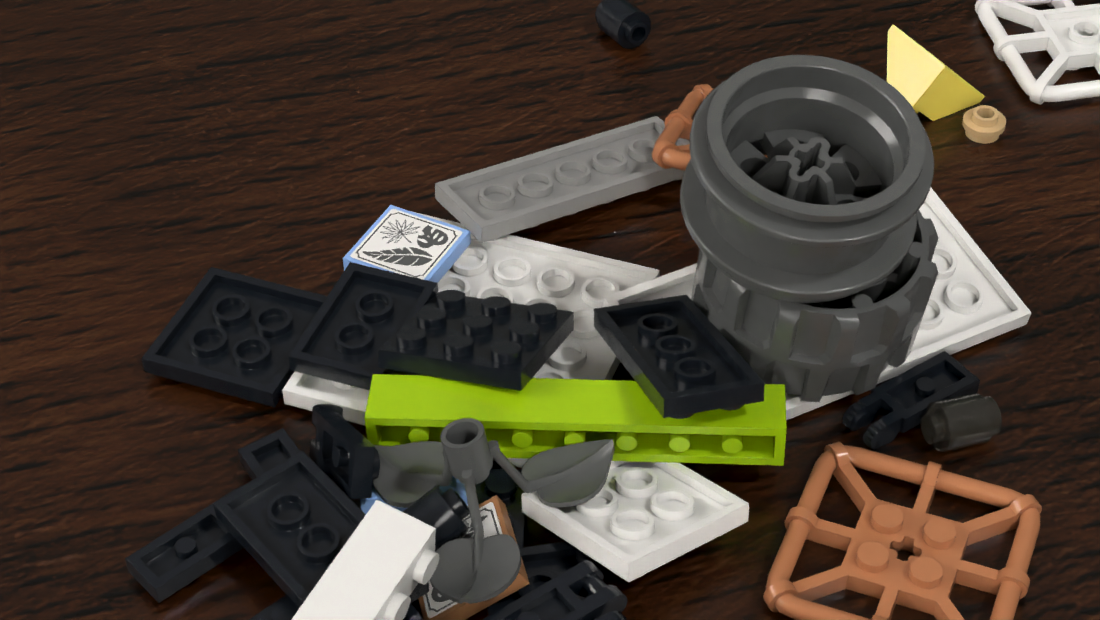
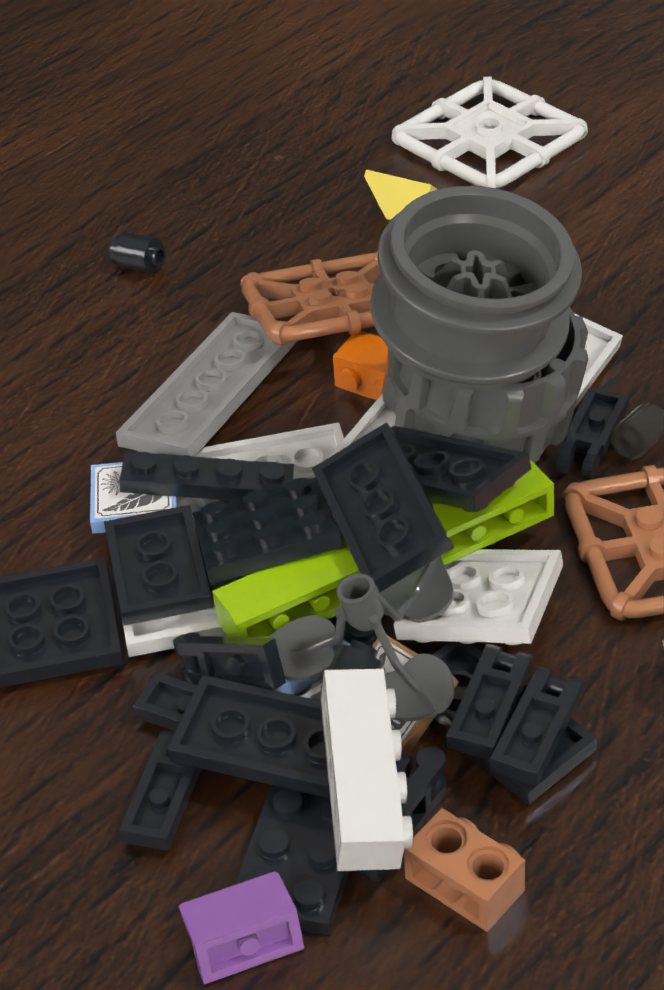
camera: 30 degrees left, 0 degrees up
(473, 260) = (199, 476): none -> black plate
(576, 370) = (382, 508): none -> black plate

